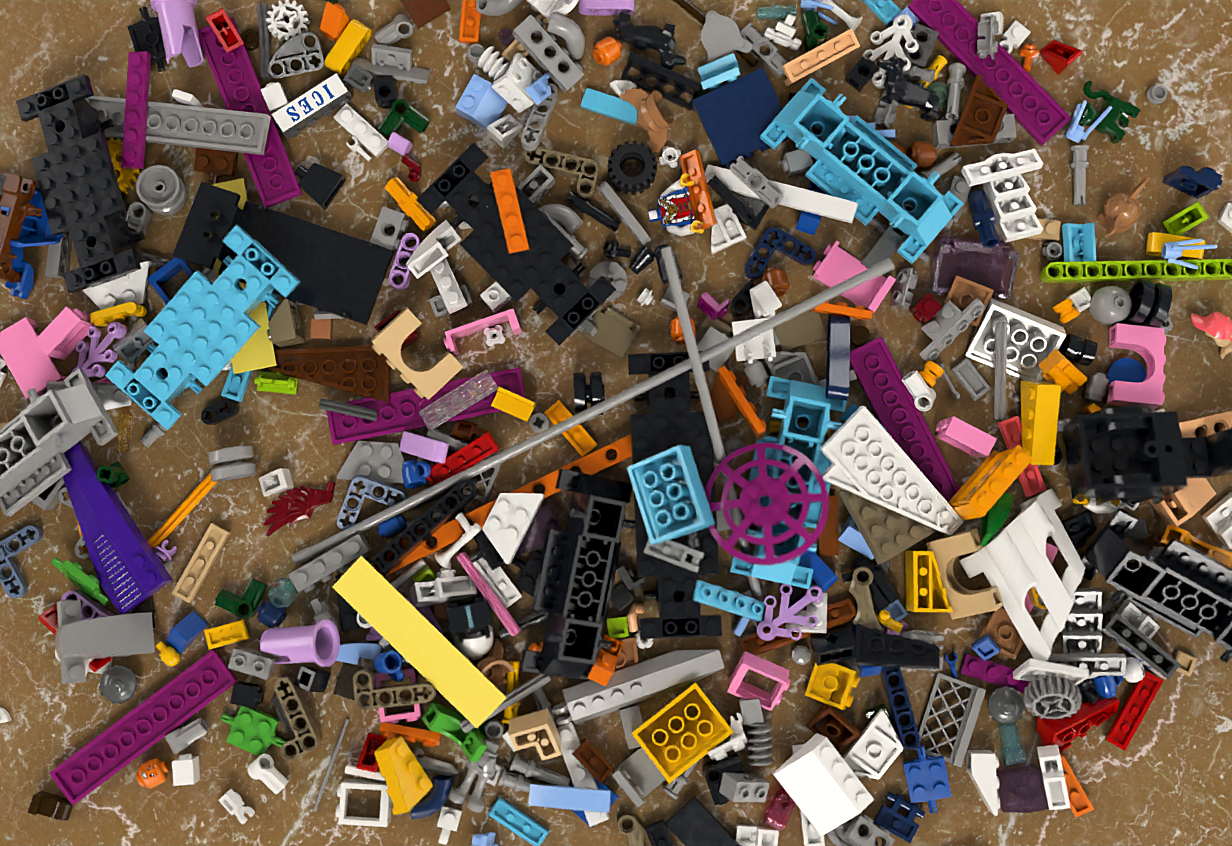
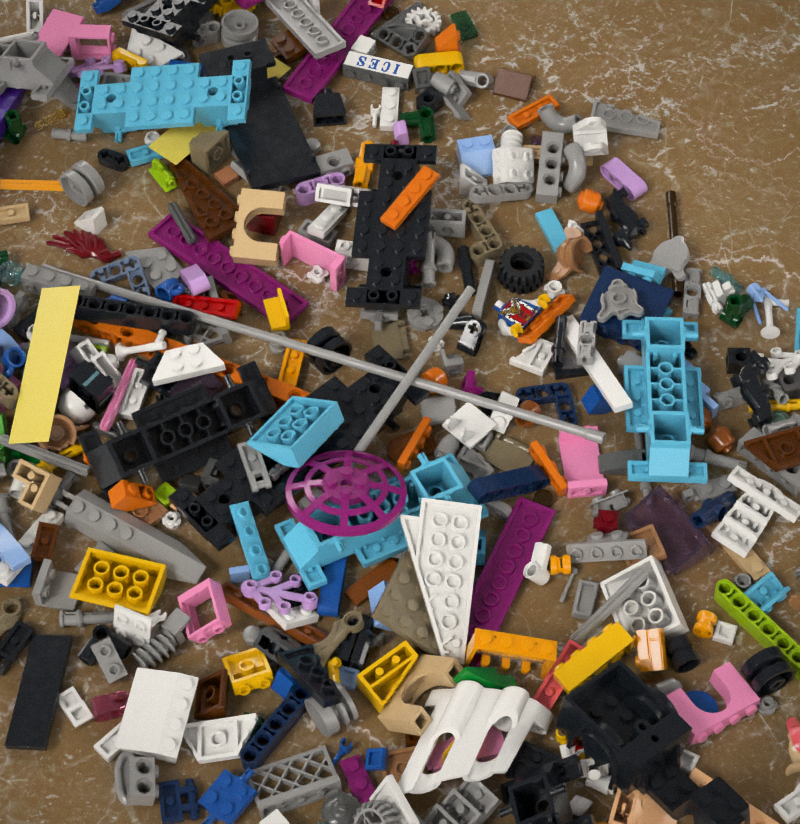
camera: 55 degrees right, 30 degrees down
(349, 228) = (314, 145): none -> light grey tile
(382, 65) = (443, 83): none -> light grey brick
(458, 400) = (248, 275): clear fence -> none
(539, 89) = (519, 176): light blue tile -> none
(740, 121) = (619, 301): none -> light grey tile
(820, 56) = (722, 324): light nougat fence -> none
(965, 437) = (531, 613): bright pink window -> none
(1110, 305) = (739, 649): light grey cylinder -> none

